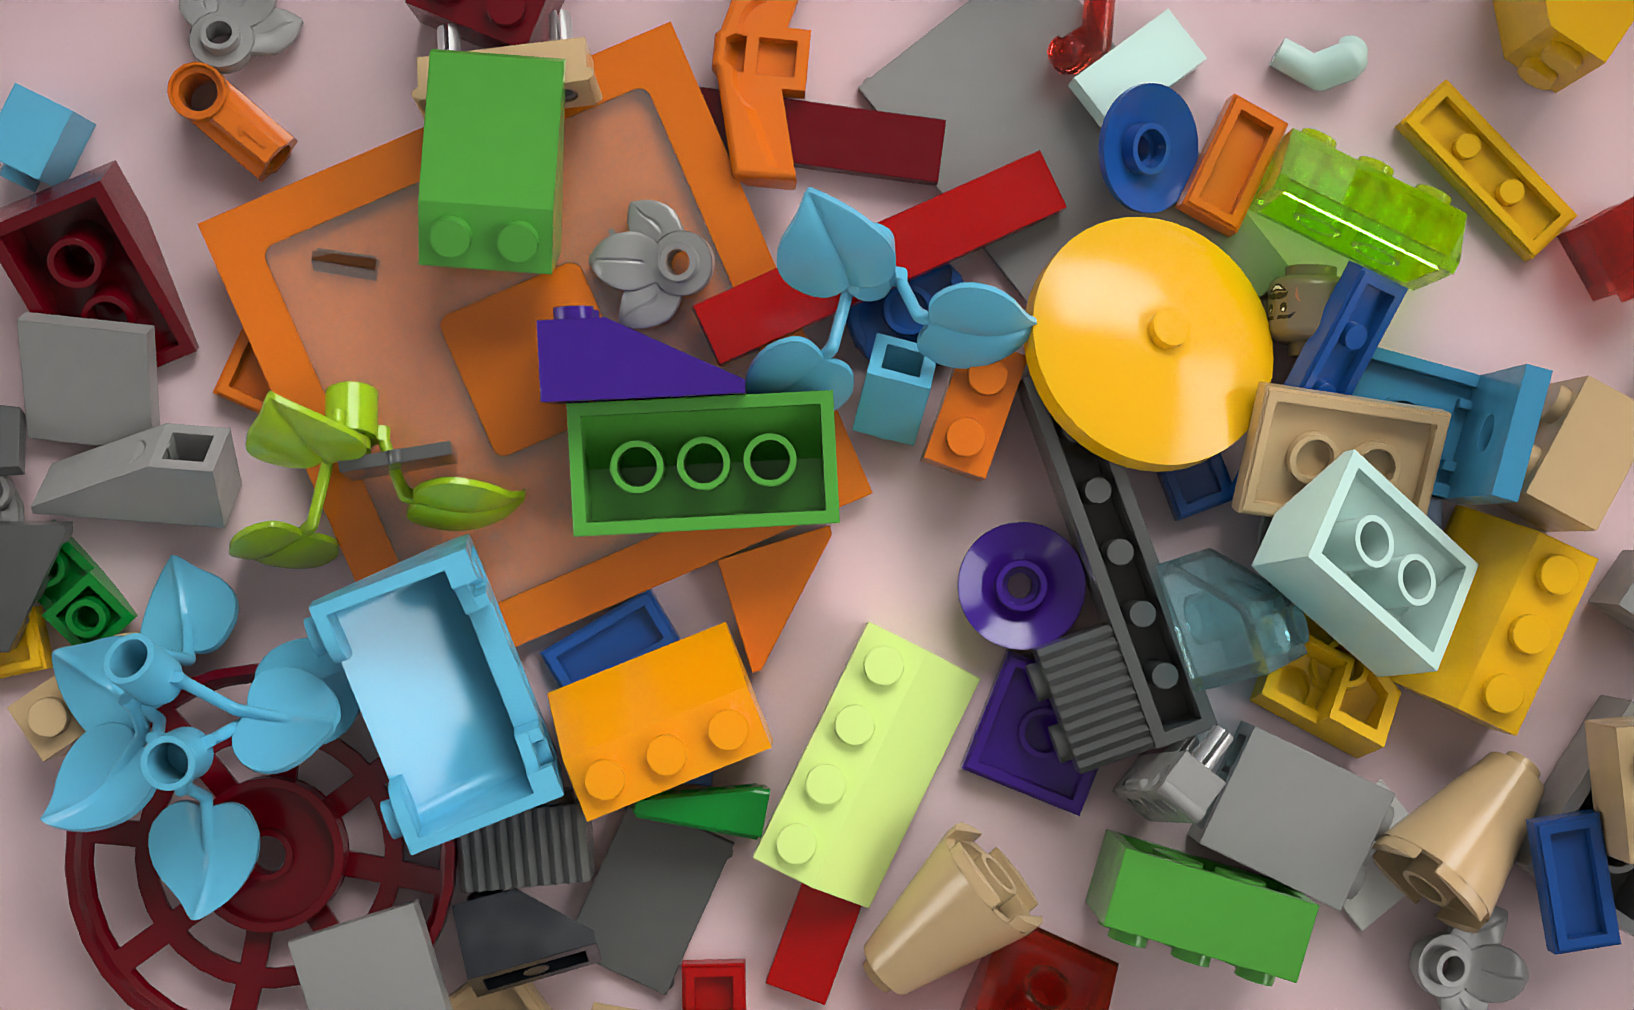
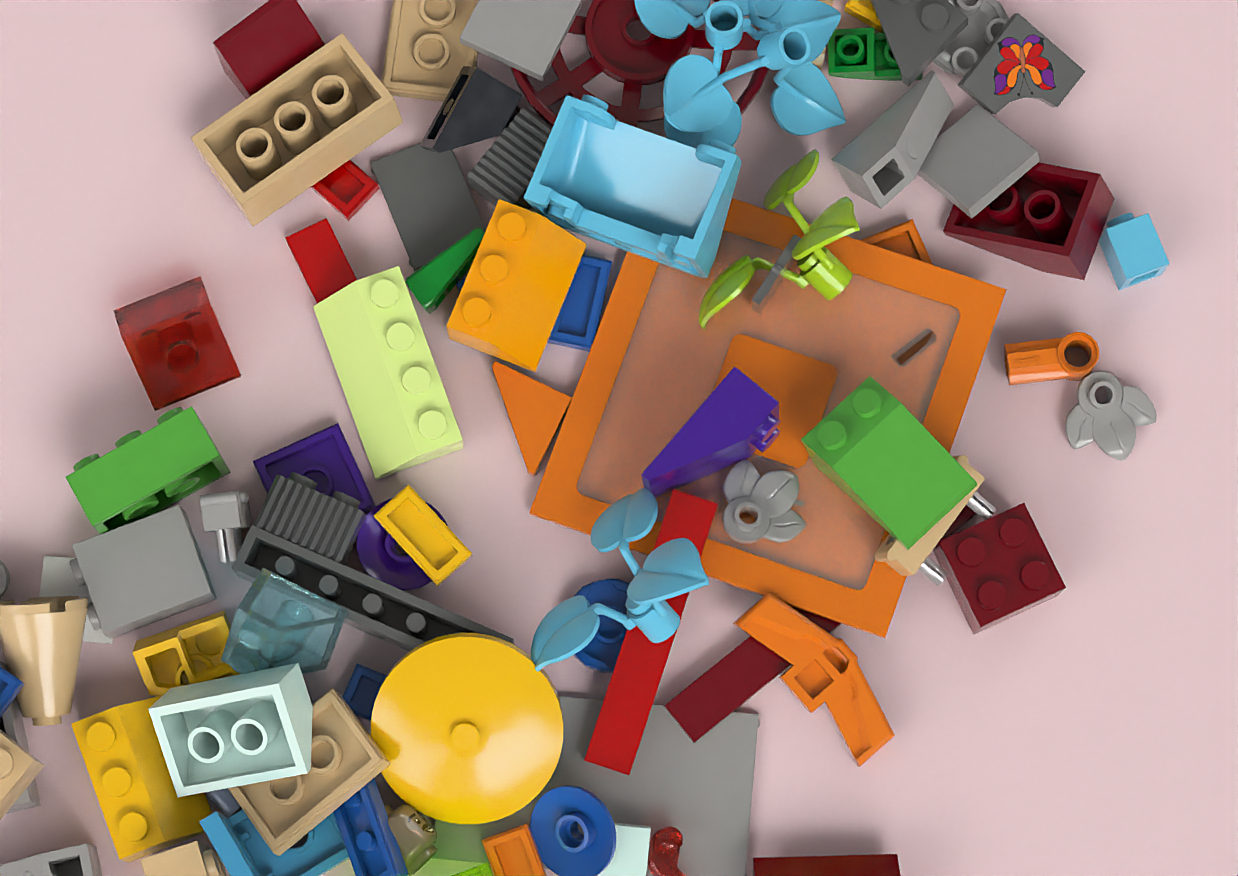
camera: 135 degrees right, 10 degrees down
(703, 463) = (623, 427): bright green slope -> none
(894, 390) = (572, 569): medium azure brick -> none
(950, 915) = (269, 345): tan cone -> none
(973, 417) = (516, 597): orange brick -> none
(998, 572) = (423, 535): none -> yellow tile

